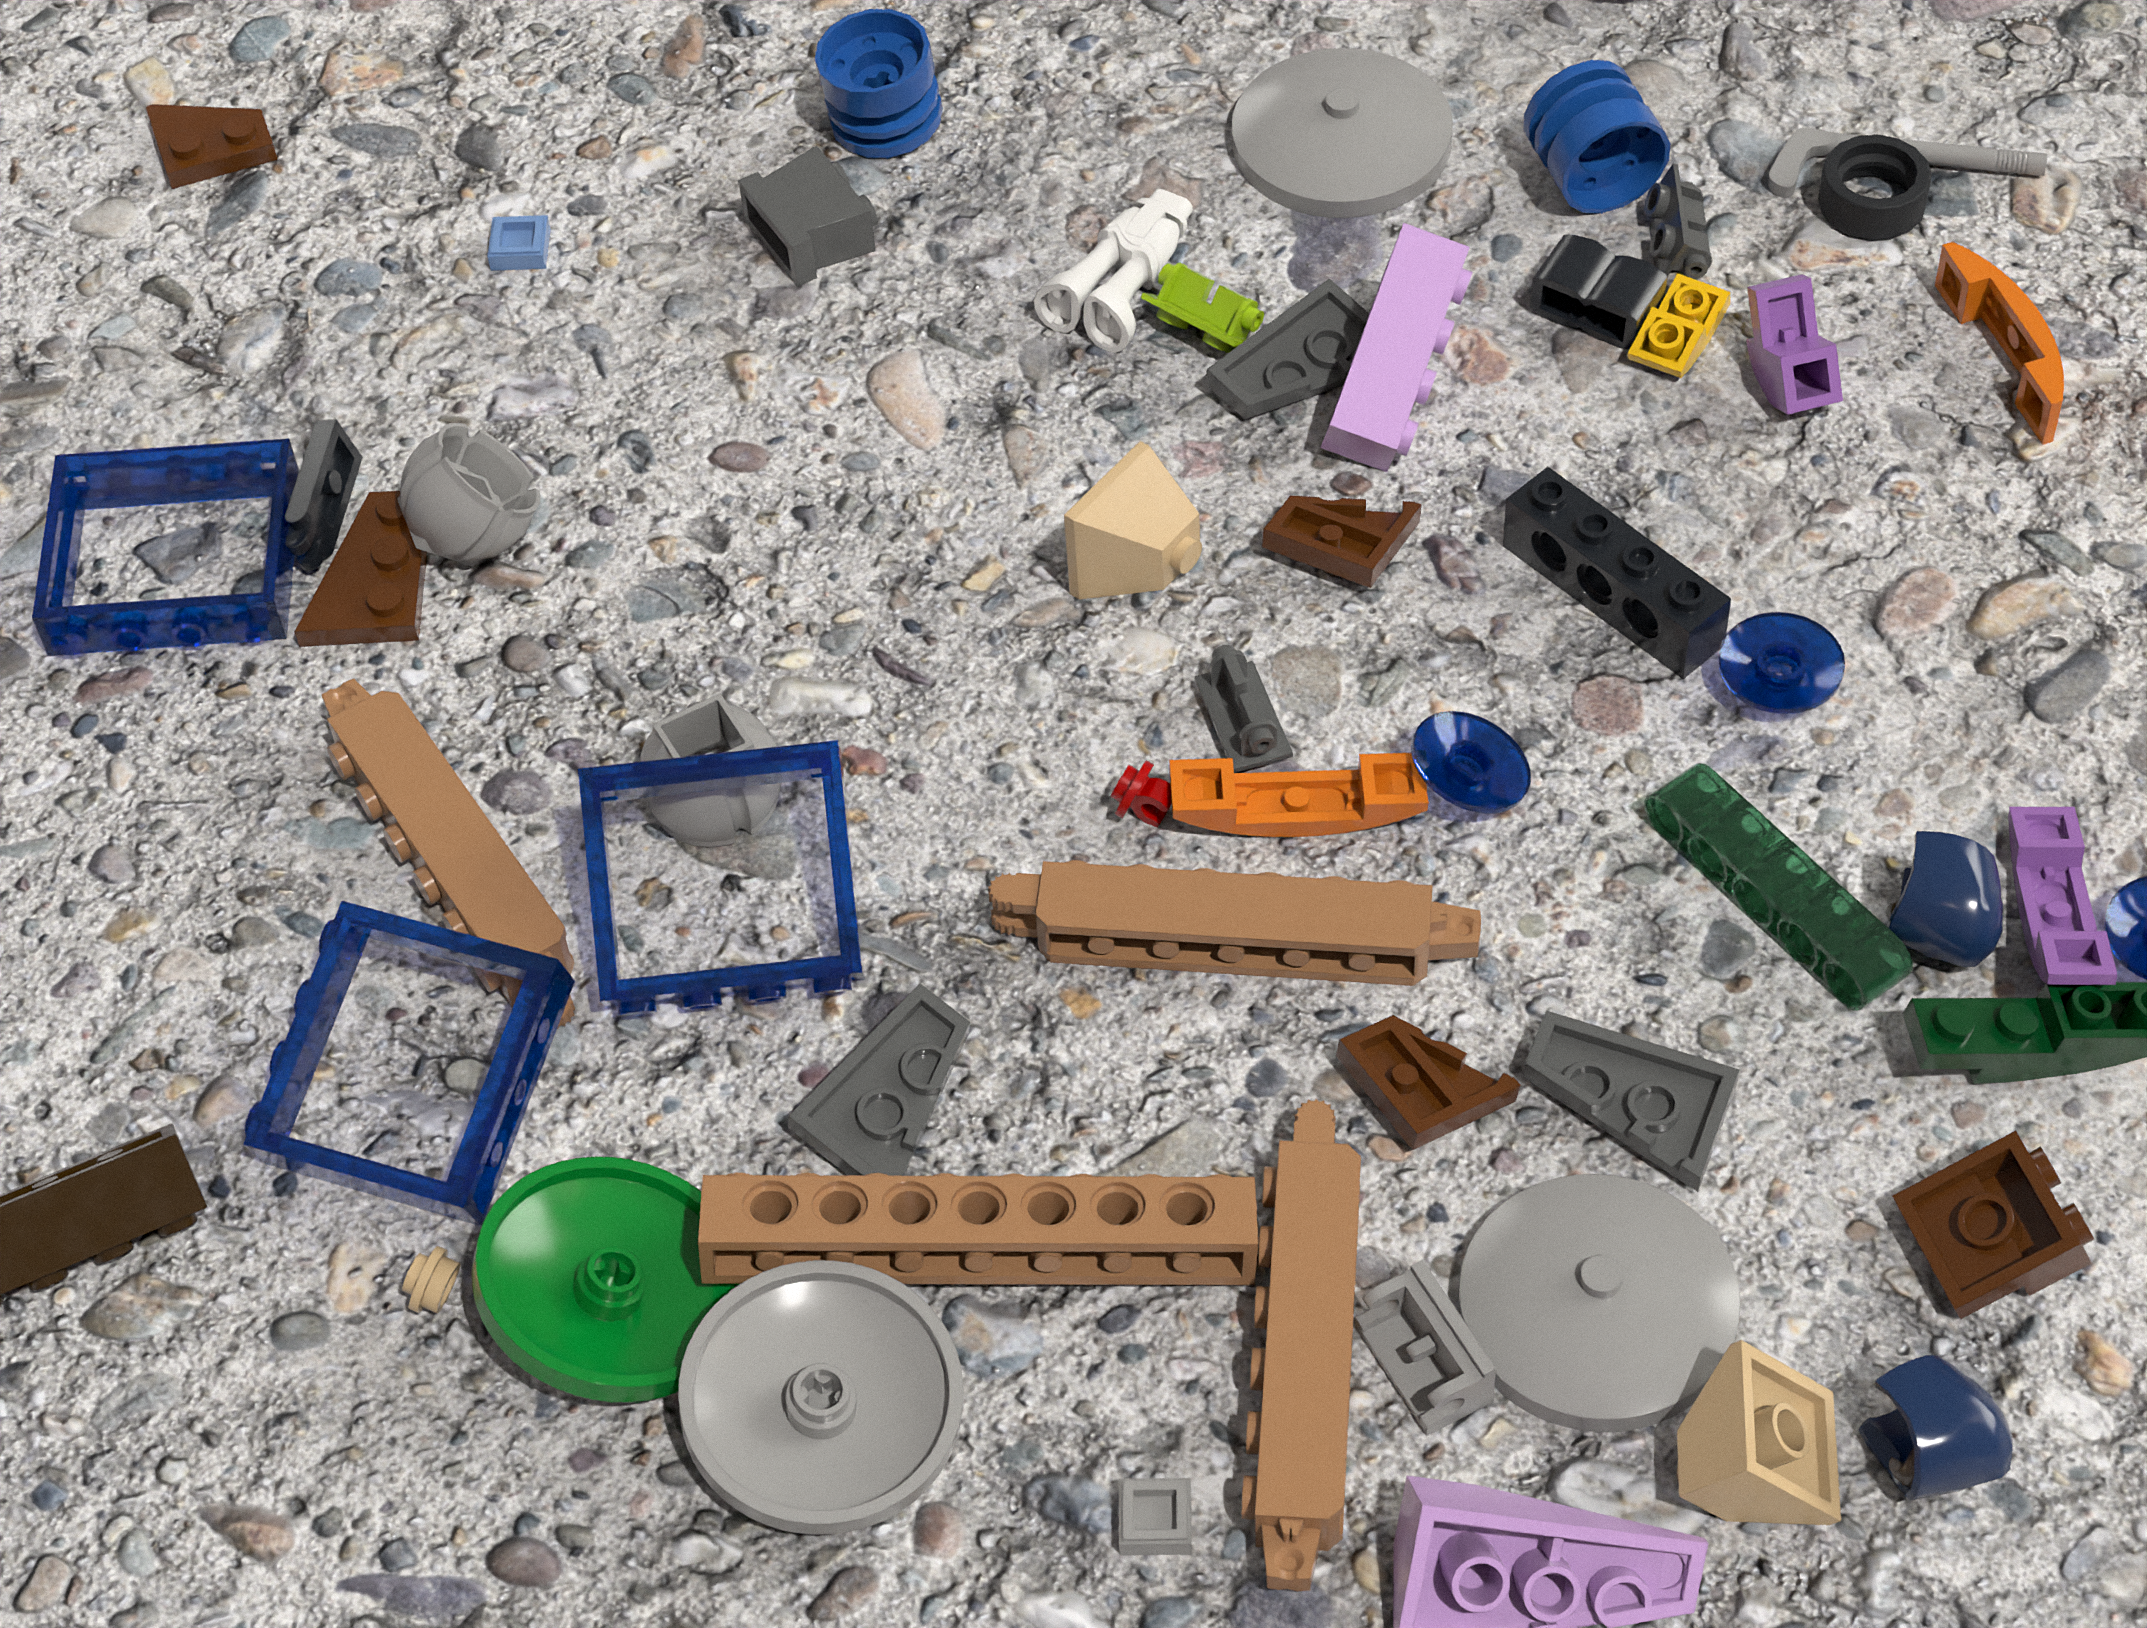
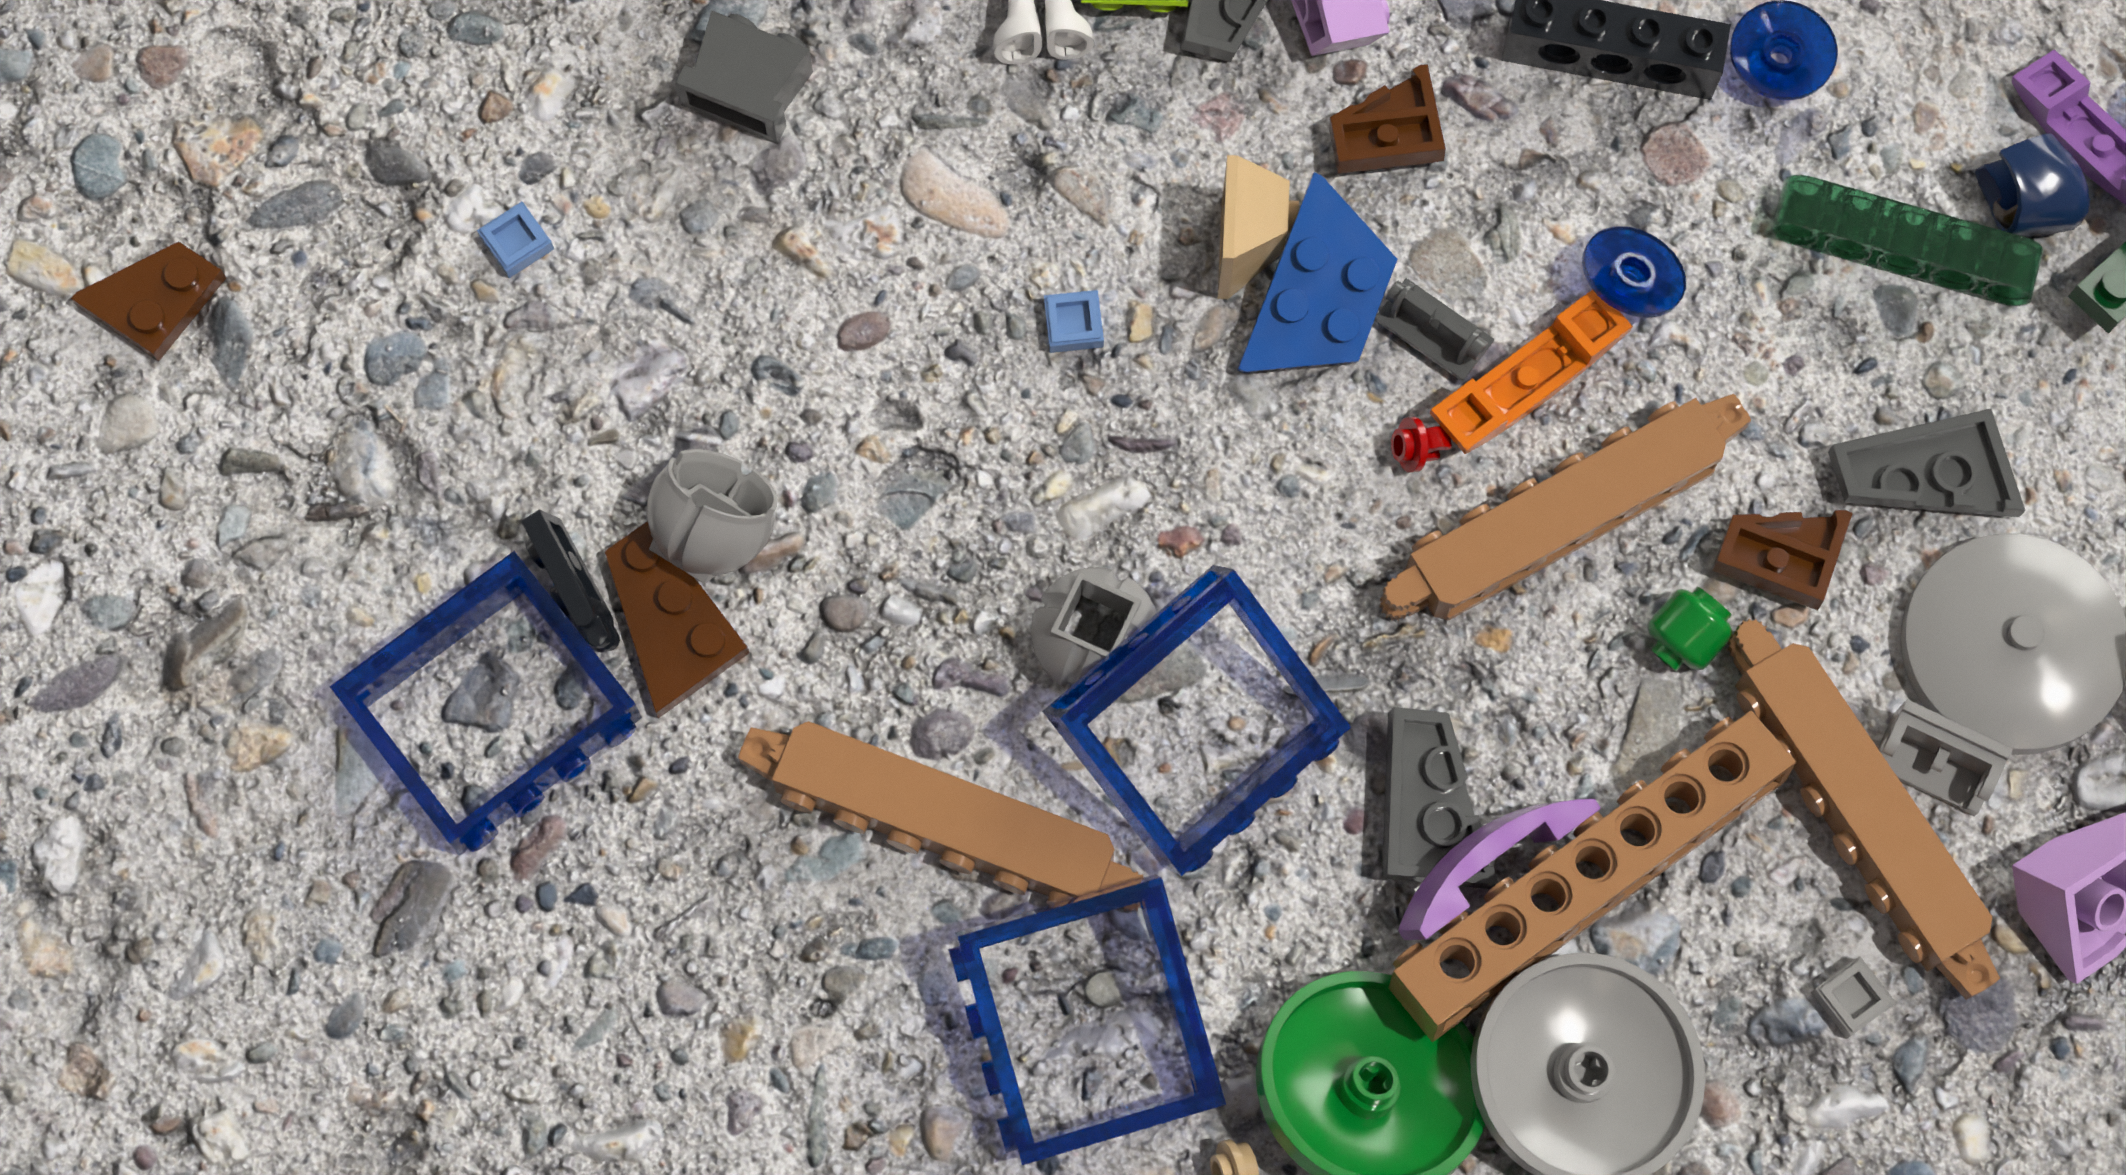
camera: 40 degrees left, 20 degrees up
(892, 1140) = (1439, 897): none -> medium lavender slope
(922, 540) = (1073, 321): none -> medium blue tile
(1158, 622) = (1321, 288): none -> blue wing
(1263, 1086) = (1689, 629): none -> green head

